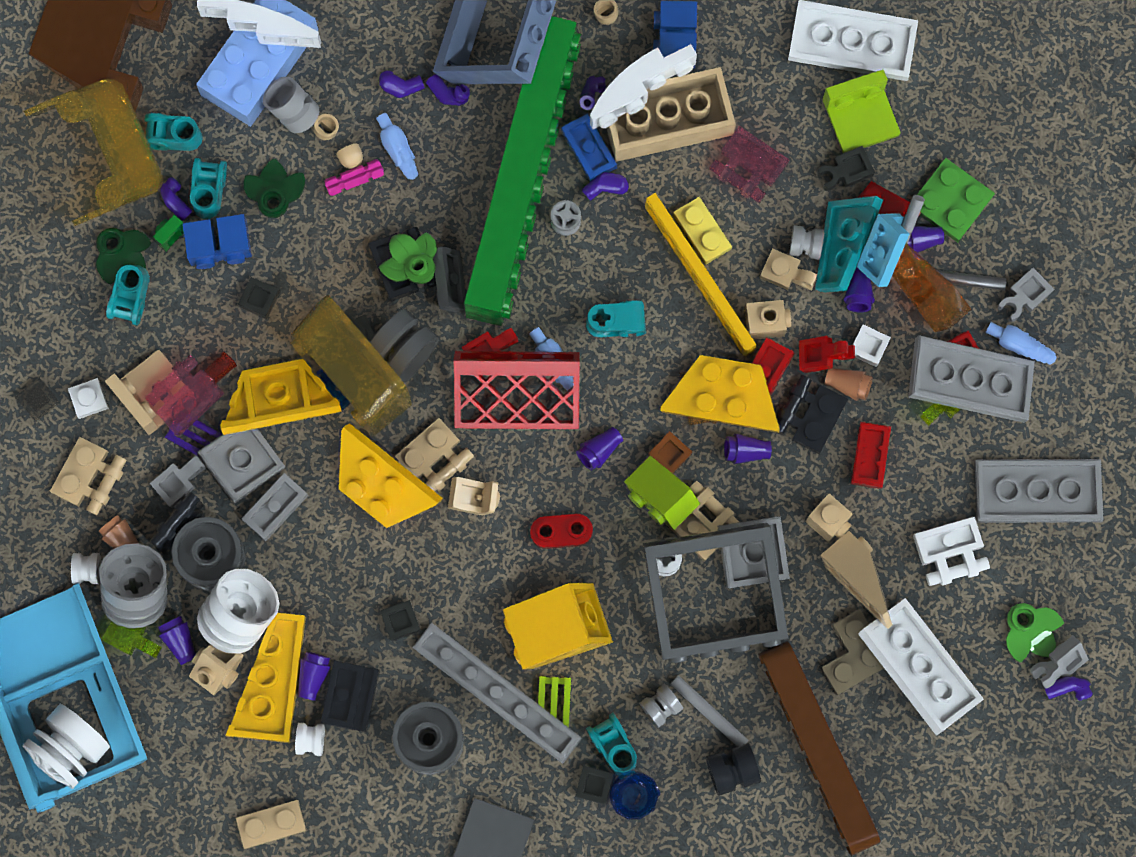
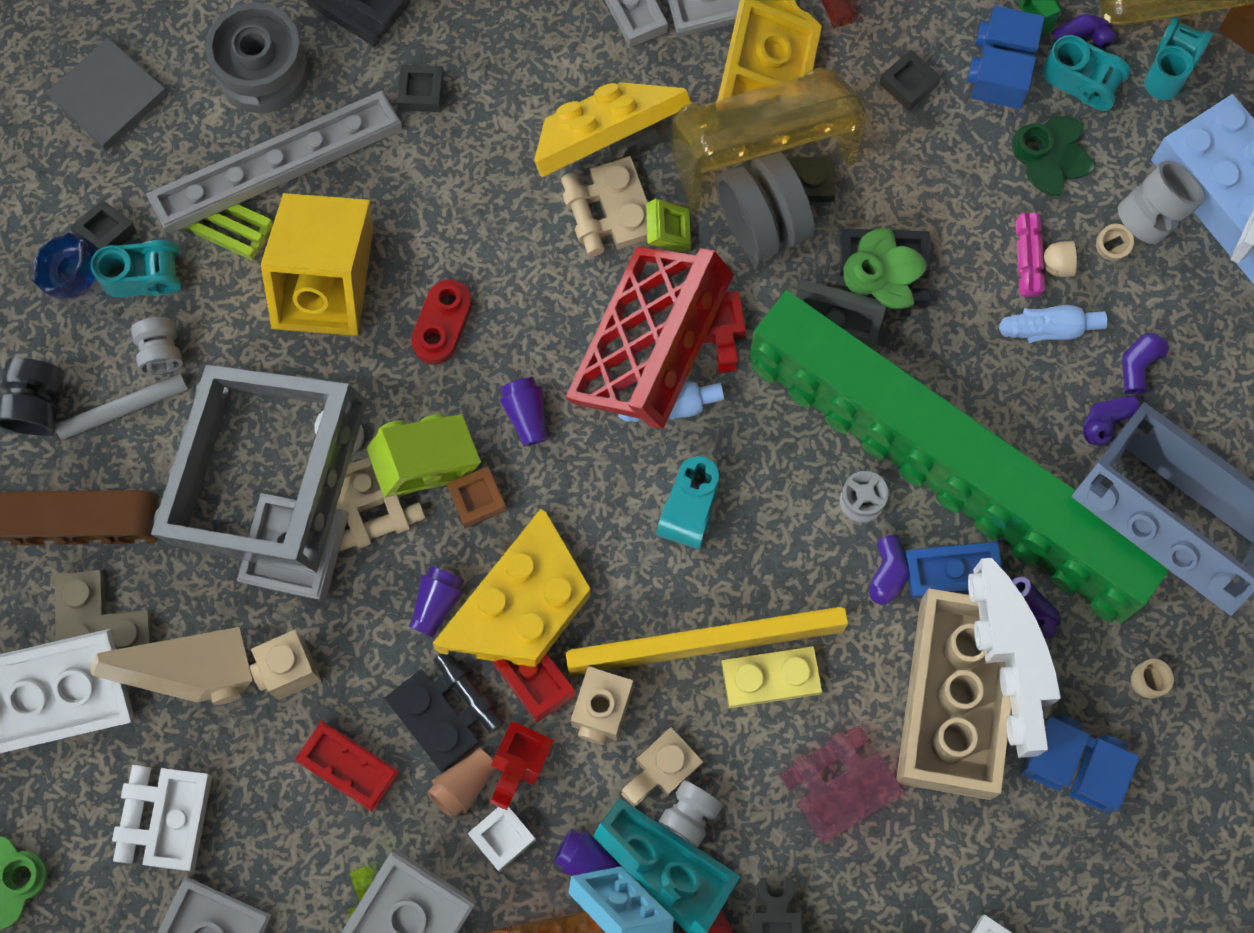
camera: 115 degrees right, 5 degrees down
(433, 411) = (668, 226): none -> lime tile
(473, 496) = (535, 229): tan bracket -> none

